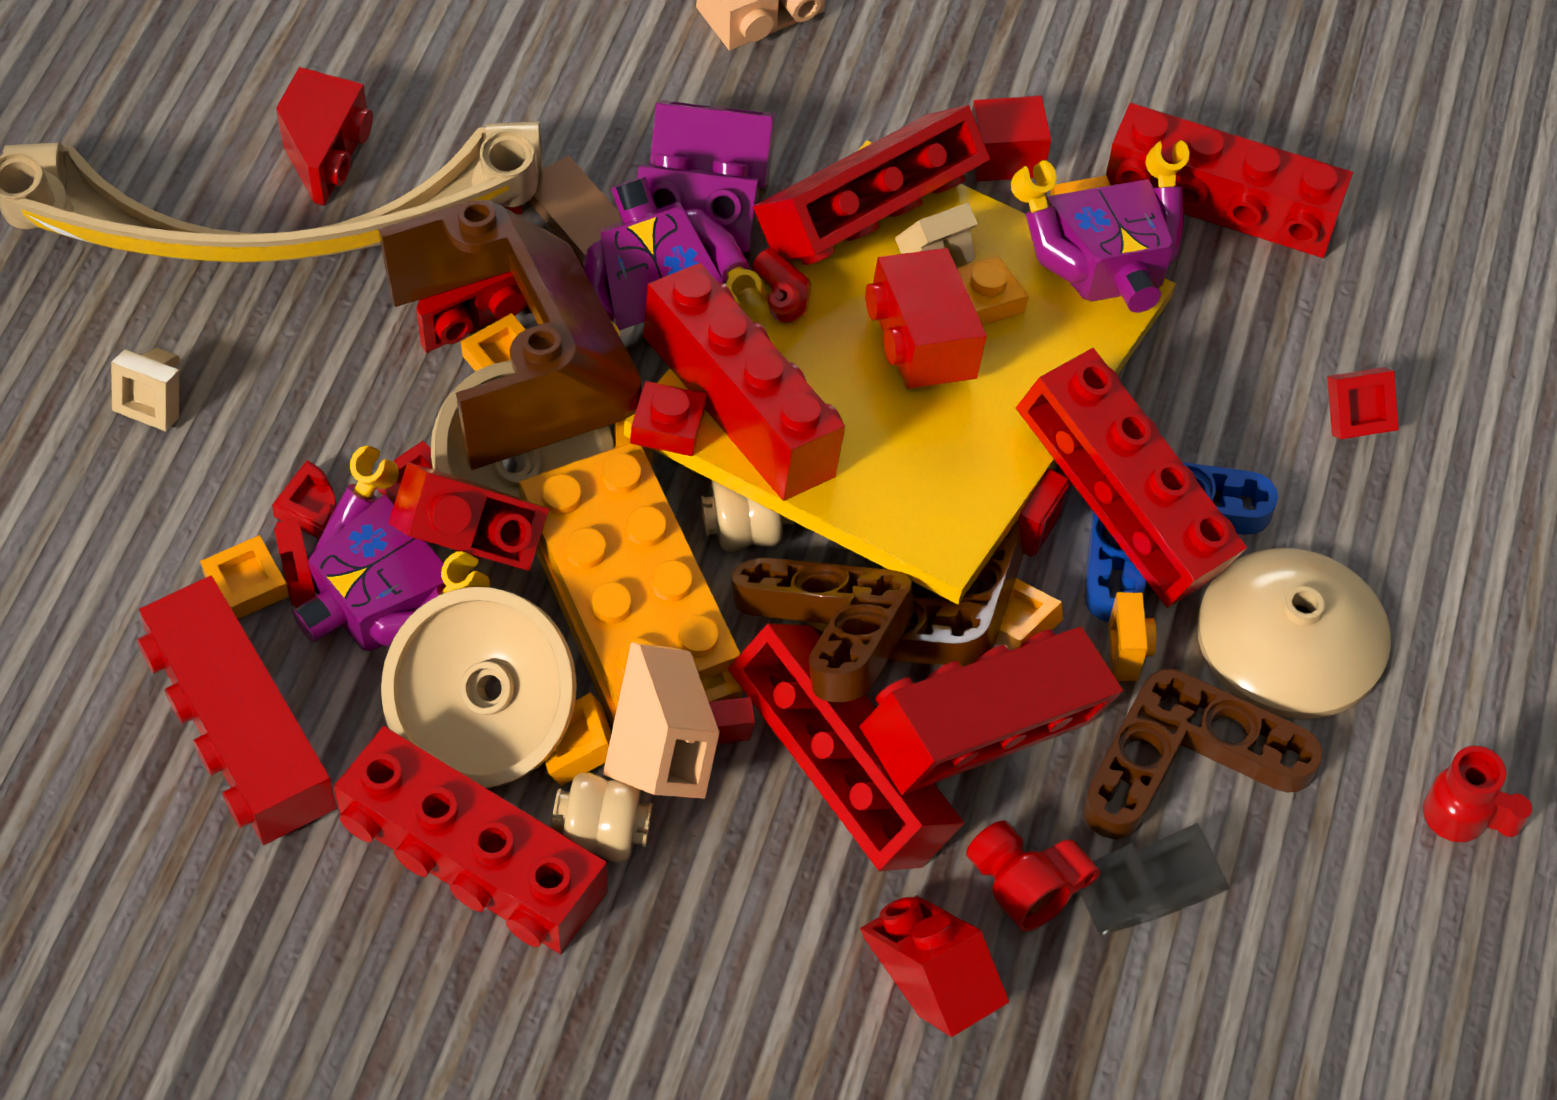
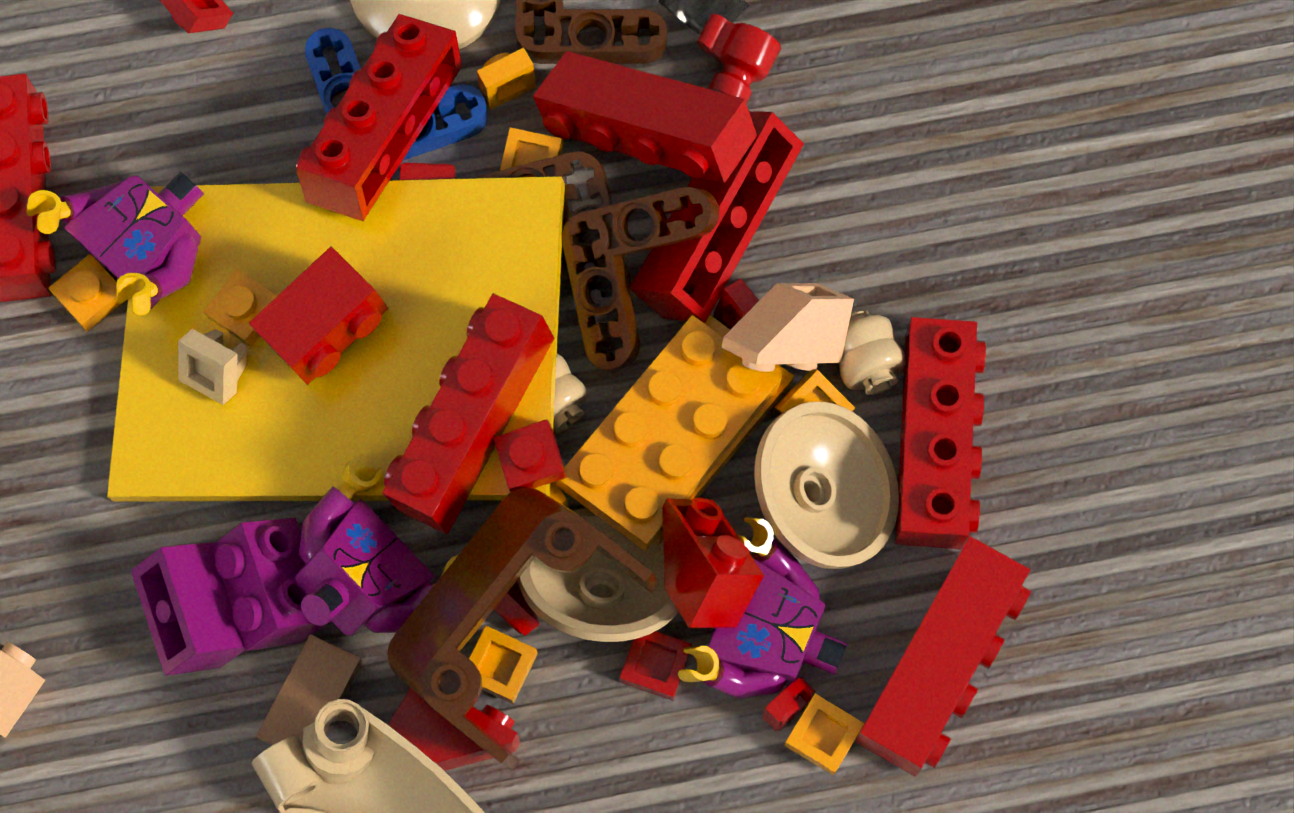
camera: 115 degrees left, 15 degrees up
(308, 499) = (721, 737): red tile -> none
(789, 286) = (333, 448): red arm -> none
(871, 184) = (188, 434): red brick -> none
(936, 963) = (839, 88): red slope -> none
(1013, 134) = (49, 380): red brick -> none

